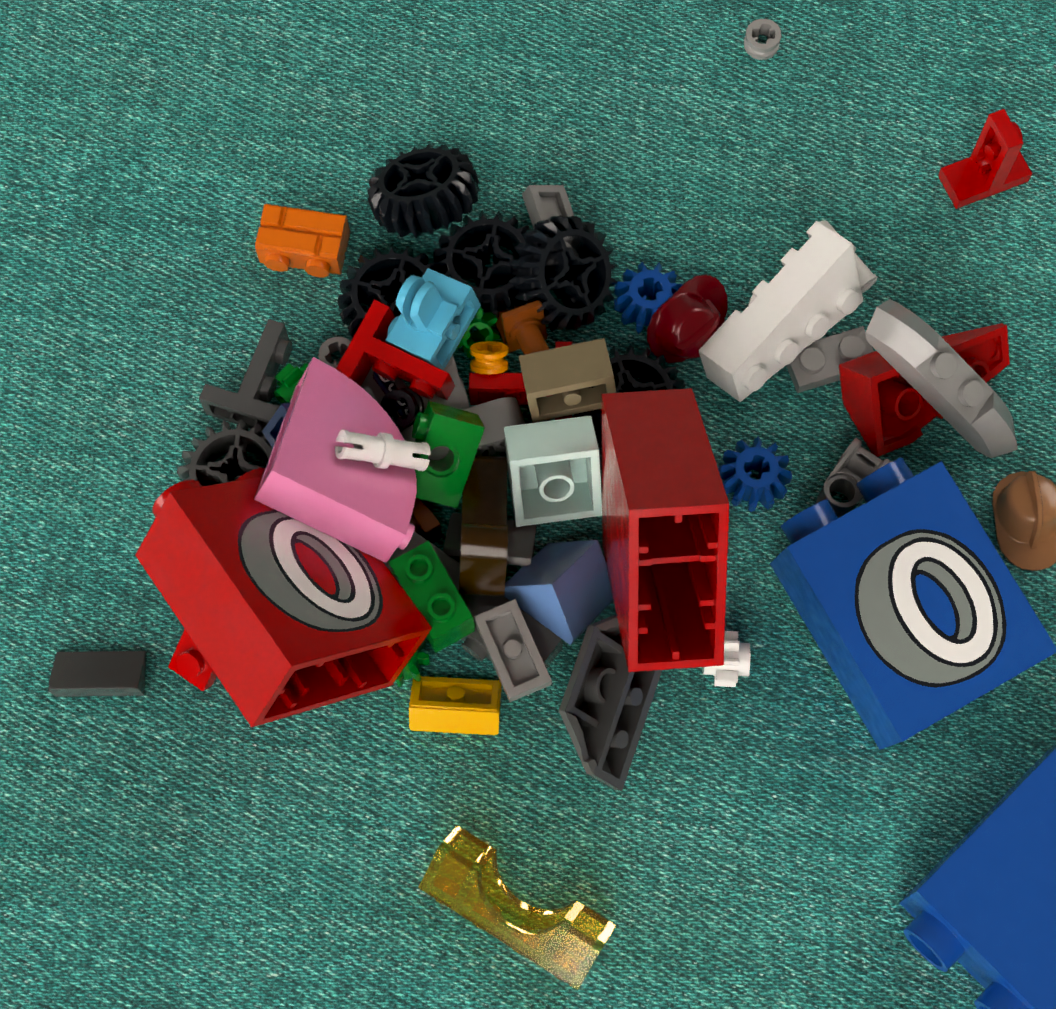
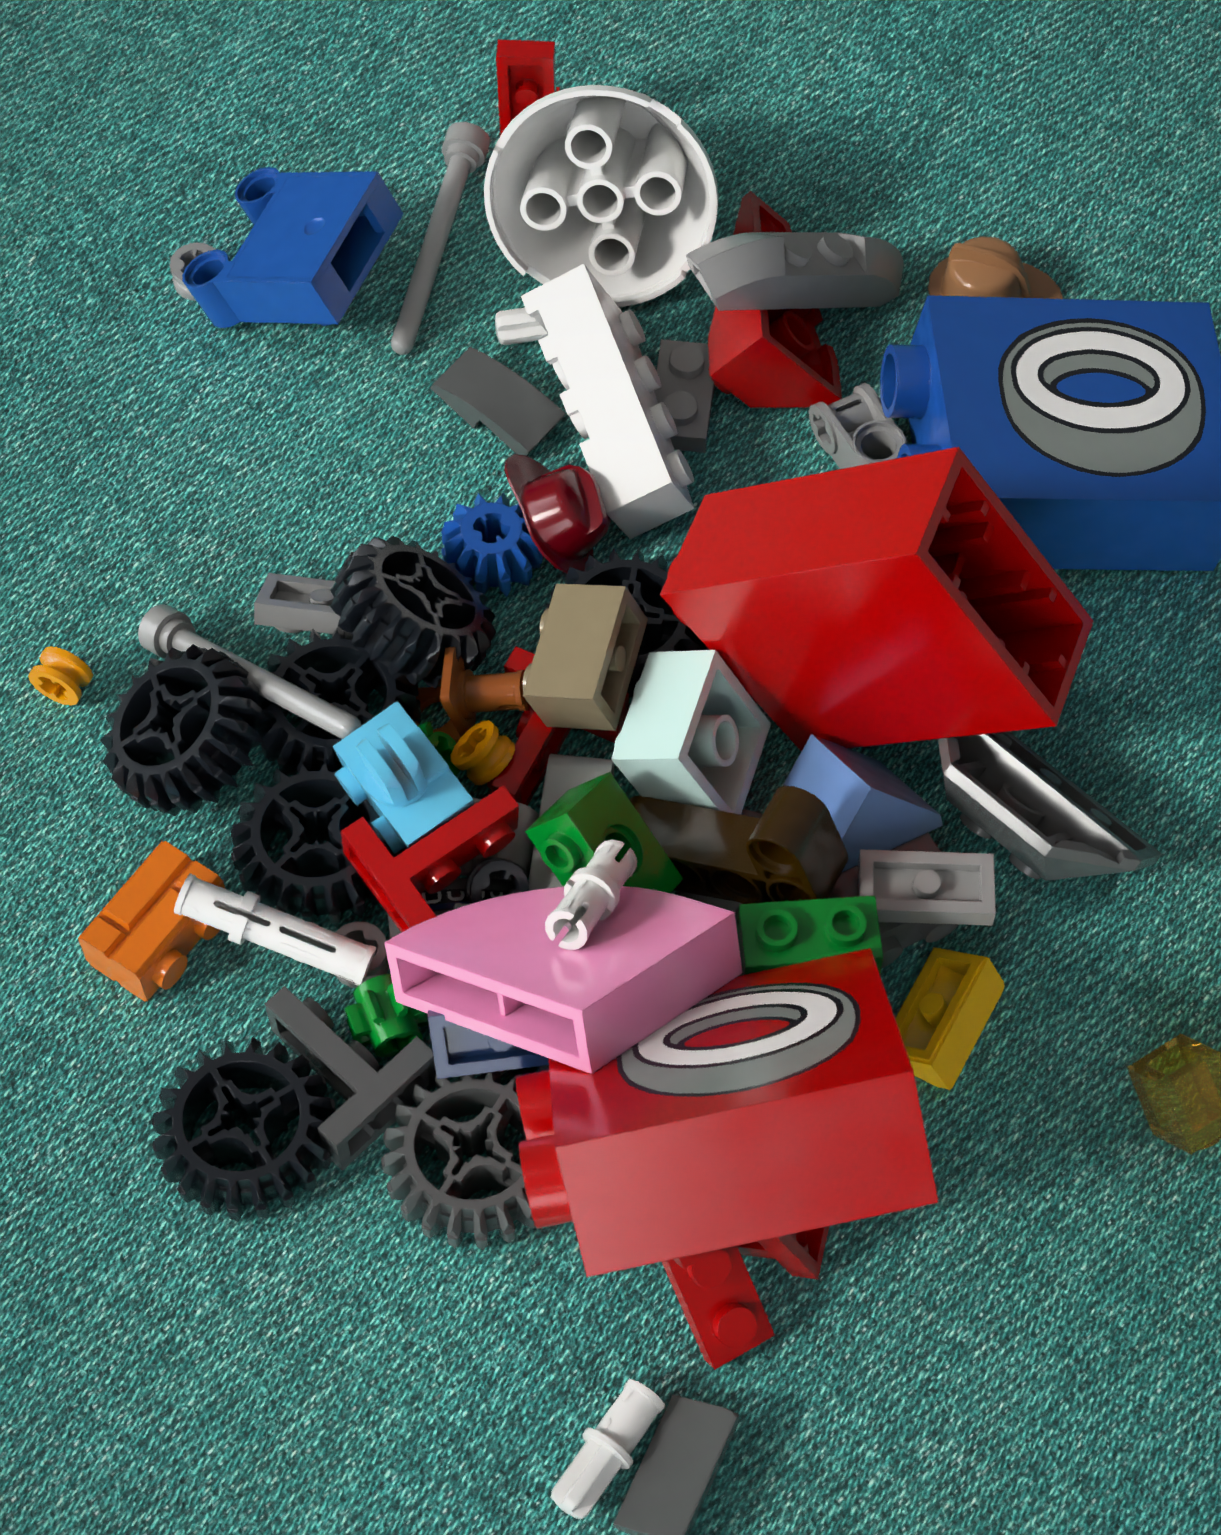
camera: 65 degrees left, 10 degrees down
(95, 628) = (606, 1449): none -> white axle
(191, 327) = (287, 1095): none -> black gear
(313, 285) = (203, 903): none -> white pin
(435, 111) = (60, 675): none -> light orange bush
(492, 154) = (169, 628): none -> light grey piece
(759, 249) = (499, 398): none -> dark grey slope
(795, 85) = (305, 251): none -> blue piece
(938, 229) = (601, 185): none -> white cone
(944, 142) = (463, 152): none -> light grey piece

